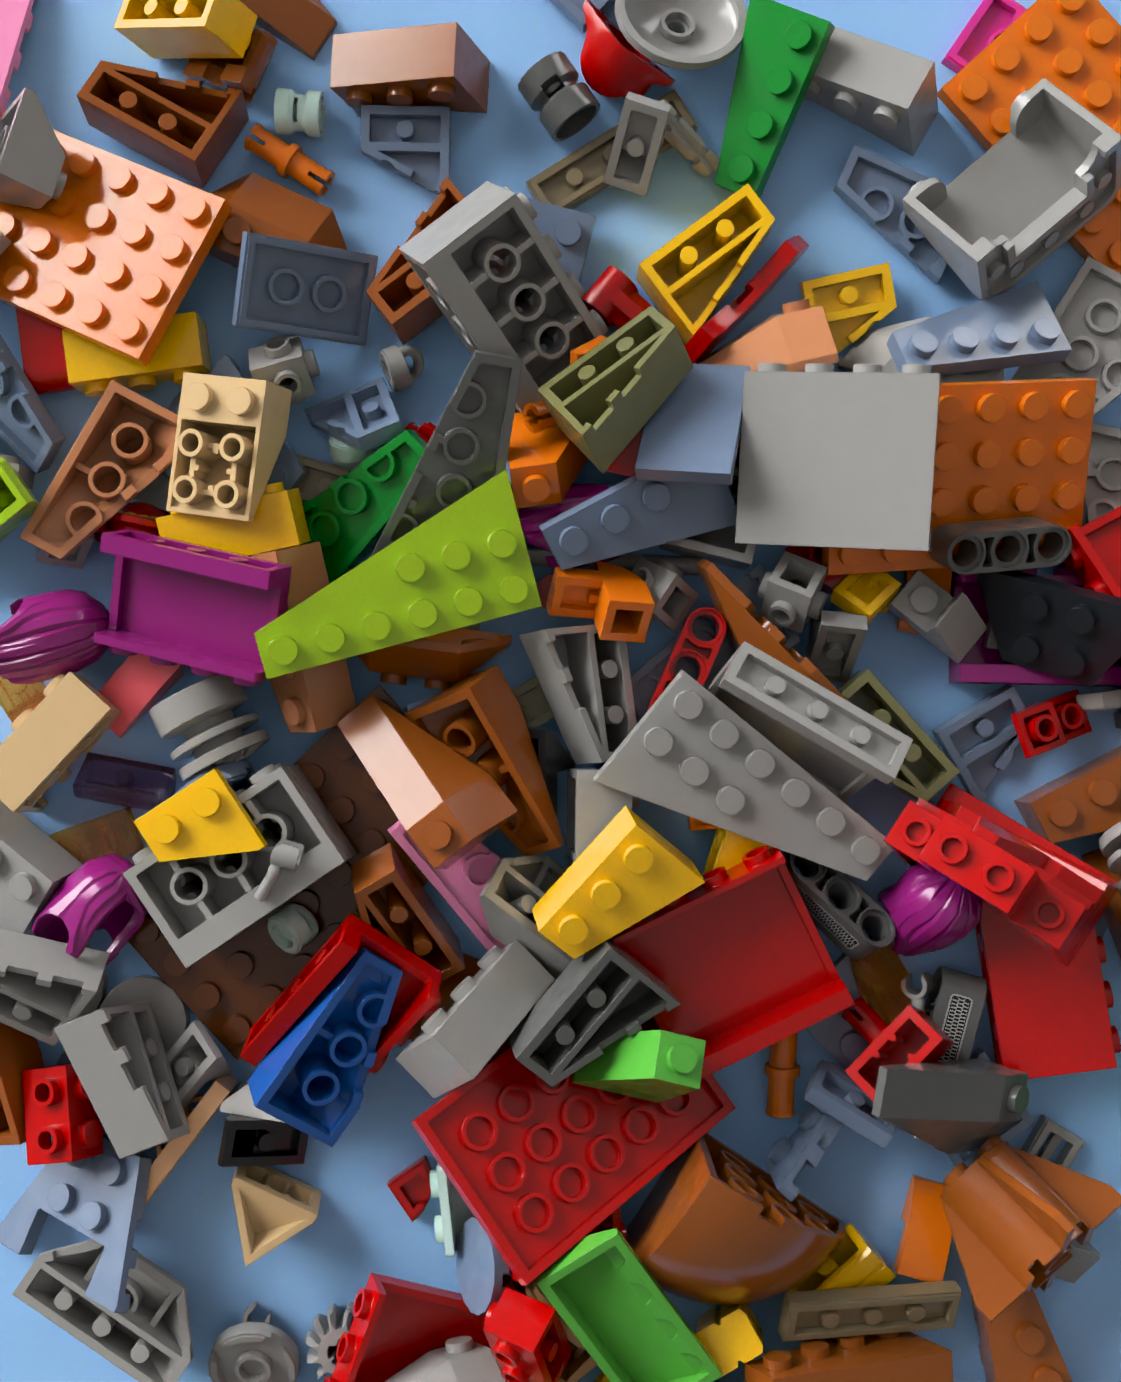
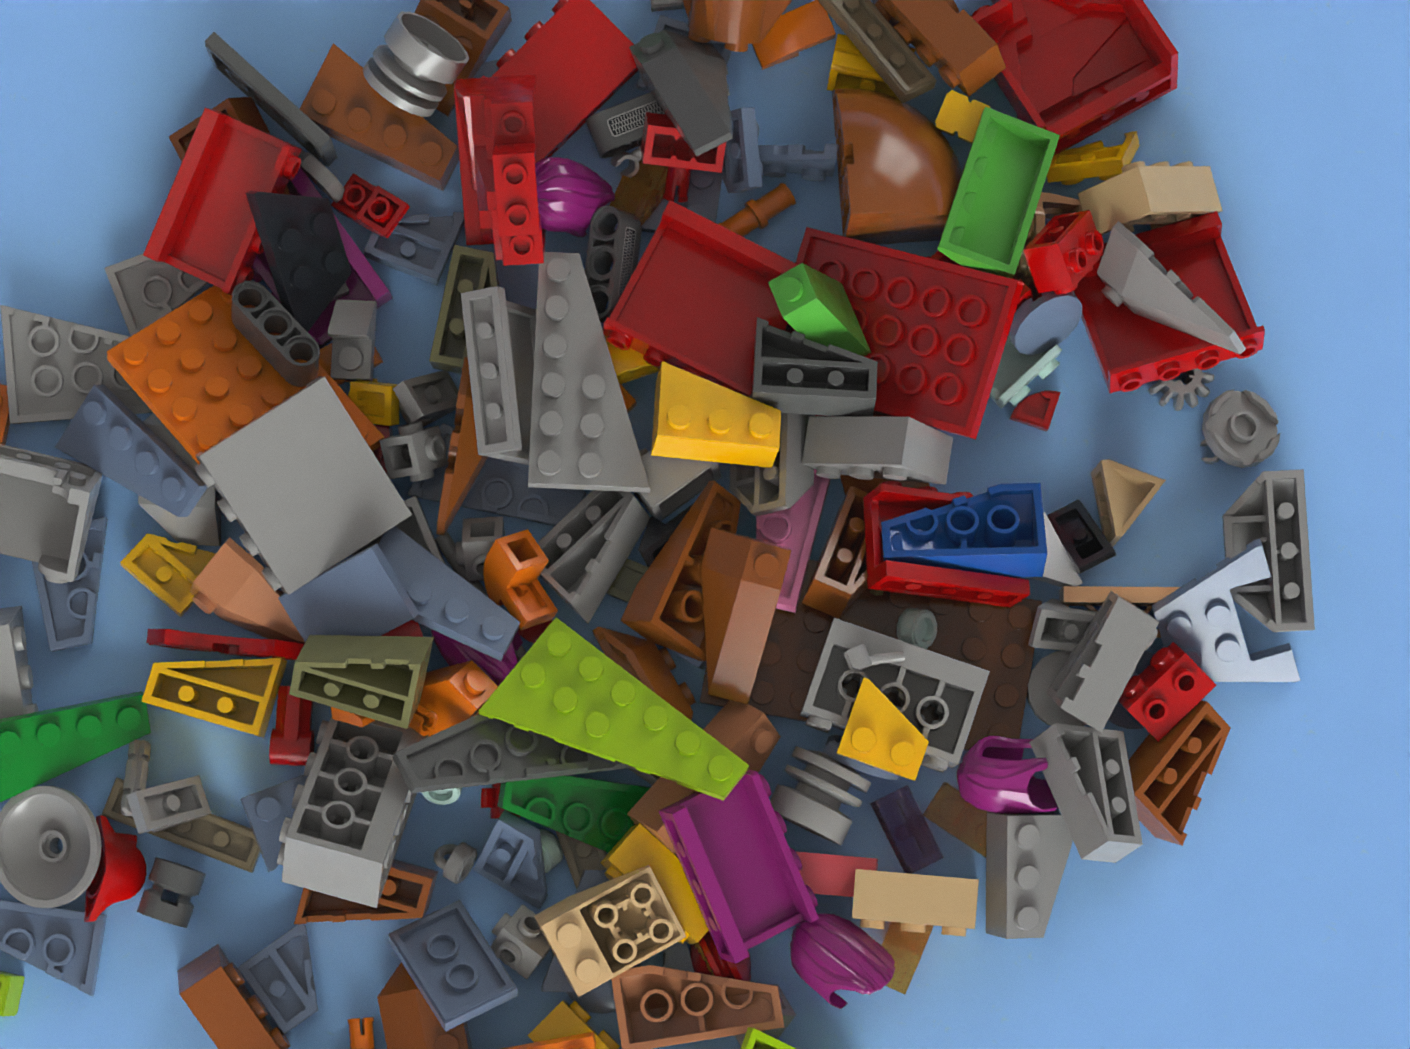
camera: 130 degrees left, 5 degrees down
(690, 647) = (506, 499): red beam -> none

